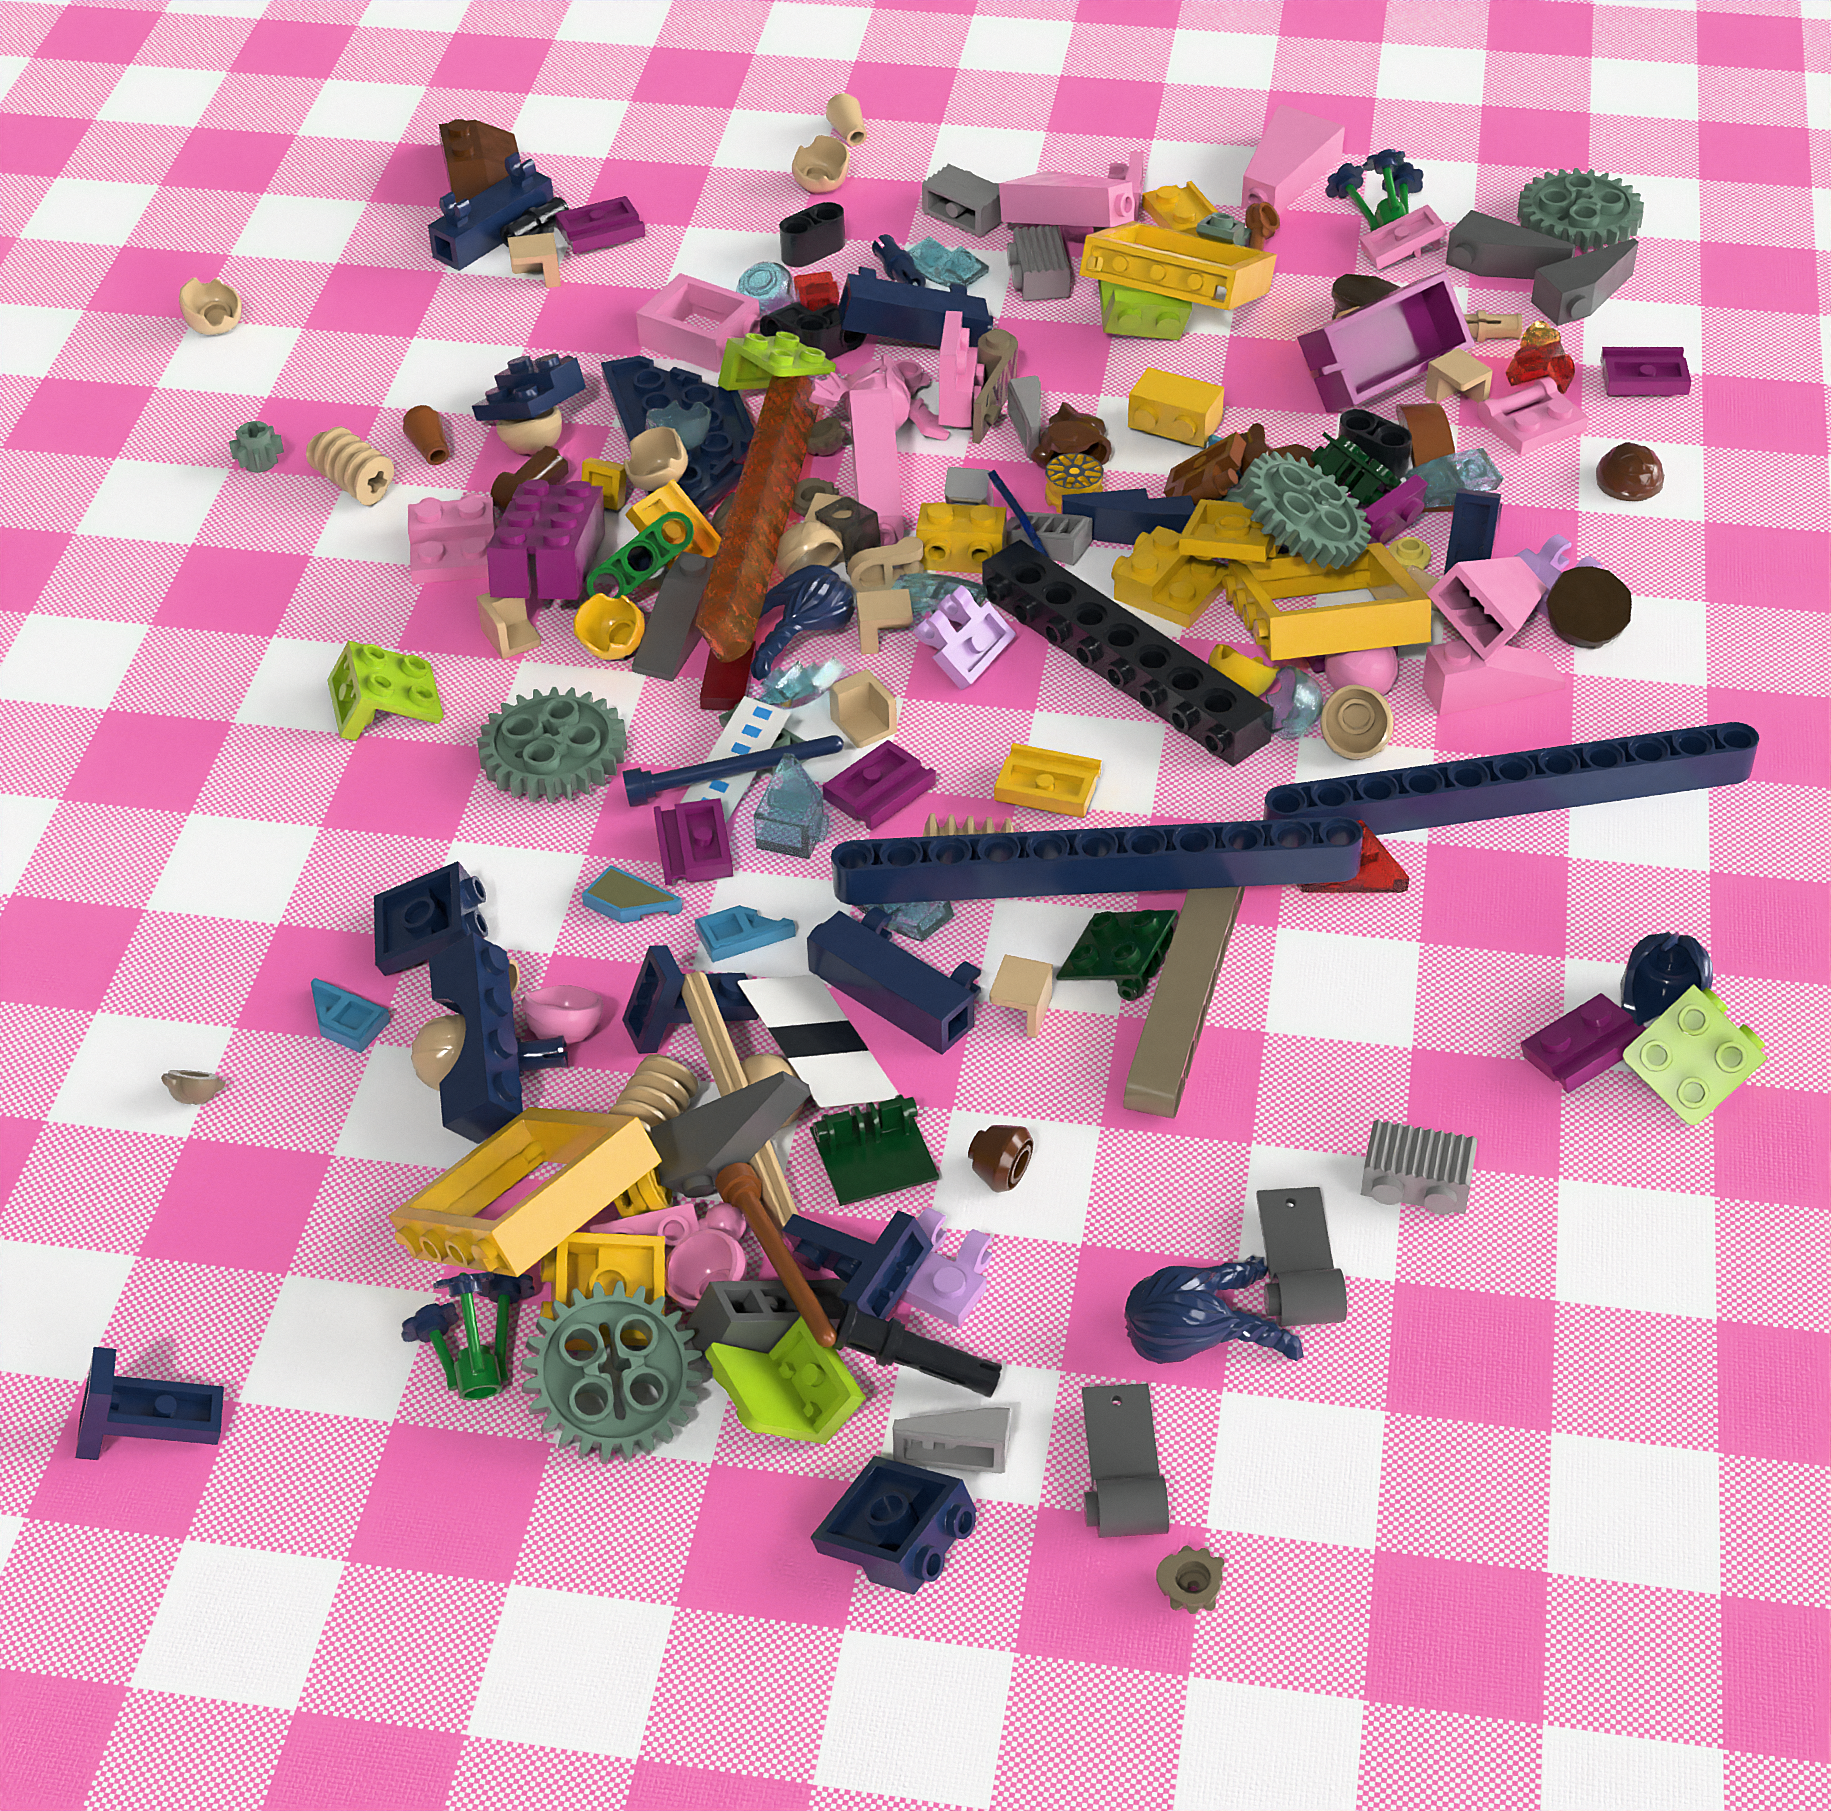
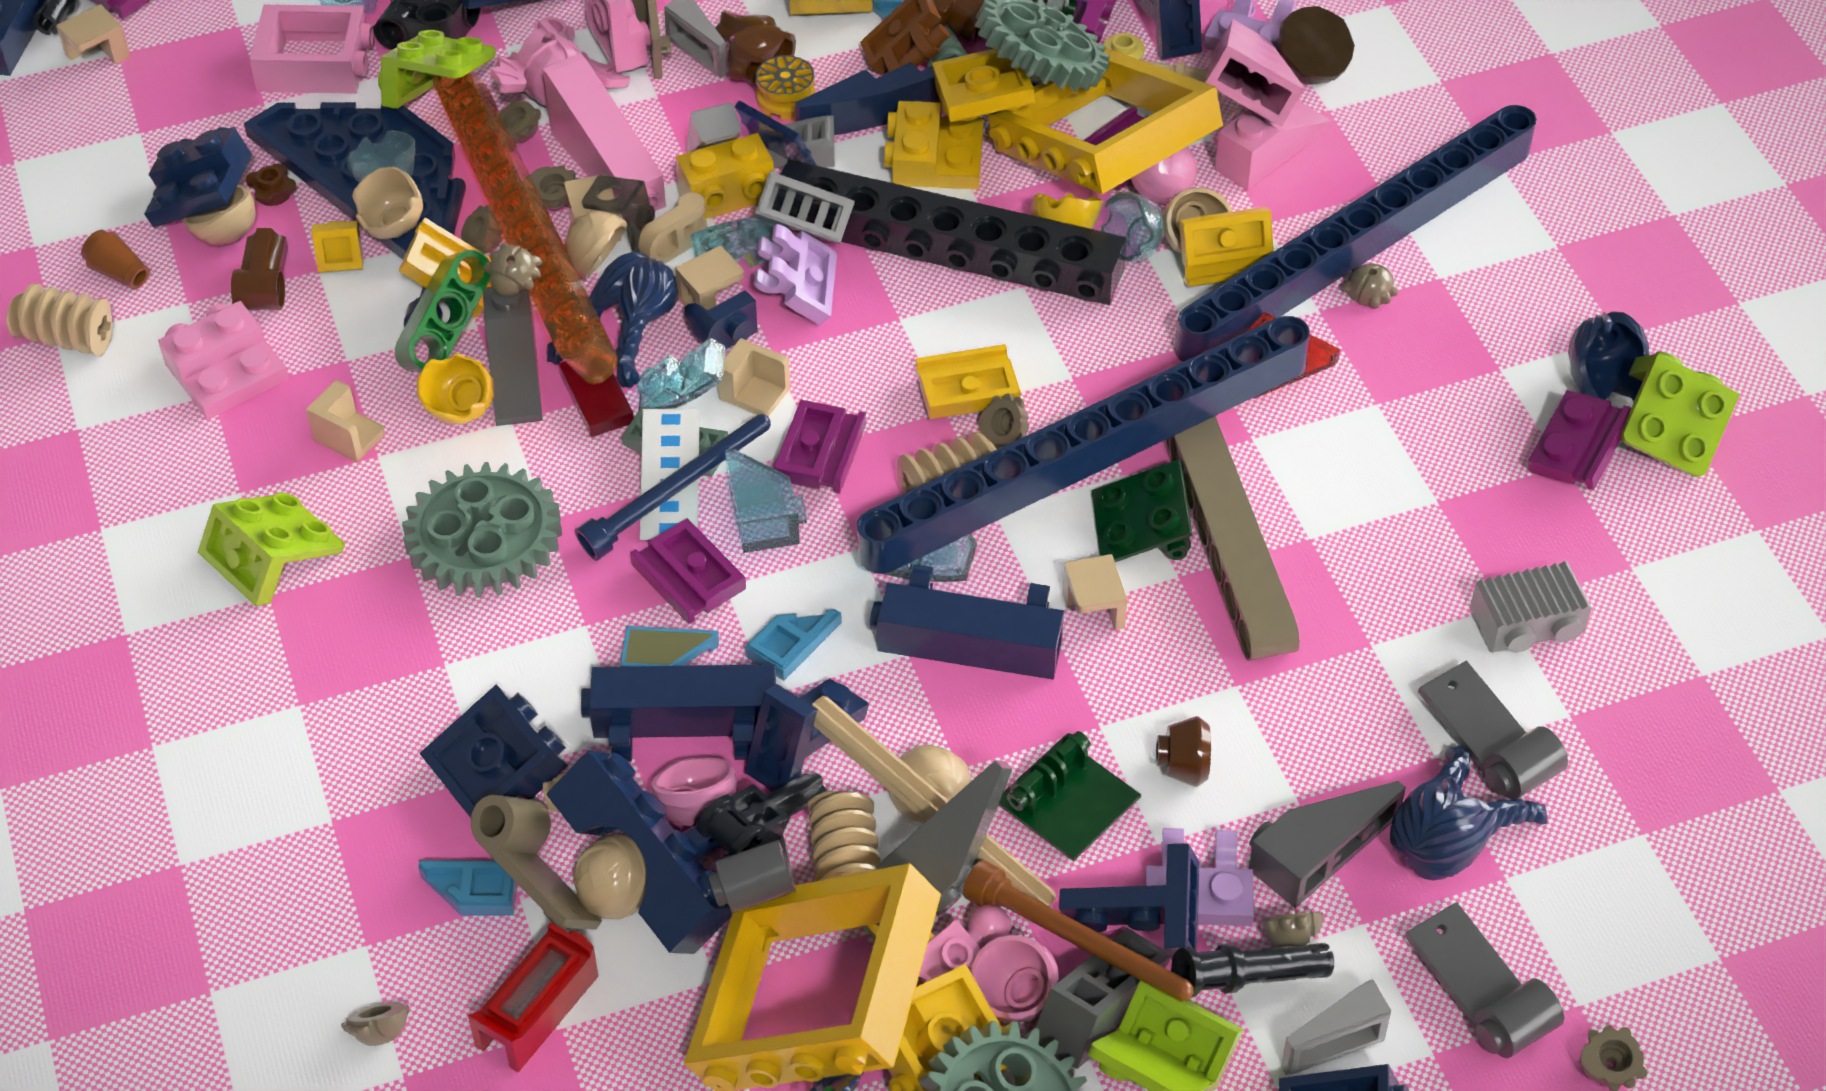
camera: 30 degrees left, 5 degrees up
(322, 1117) = (536, 995): none -> red window
(390, 990) = (513, 834): none -> dark tan door
(539, 1086) = (753, 876): none -> dark grey door
(559, 527) = (330, 310): magenta piece -> none
(586, 1052) = (756, 818): none -> black connector
(591, 419) = (271, 184): none -> reddish brown plate
(596, 936) = (676, 703): none -> dark blue brick
(707, 542) = (512, 278): none -> dark tan animal
(818, 1040) = (943, 712): white sticker -> none
(878, 653) = (726, 321): none -> dark blue plate
(976, 559) = (793, 187): none -> light grey slope
(983, 1340) = (1292, 928): none -> dark tan animal
(1057, 816) = (1004, 420): none -> dark tan animal
(1064, 1278) = (1319, 838): none -> dark grey slope
(1364, 744) = (1224, 244): none -> yellow plate
(1491, 837) = (1370, 285): none -> dark tan animal

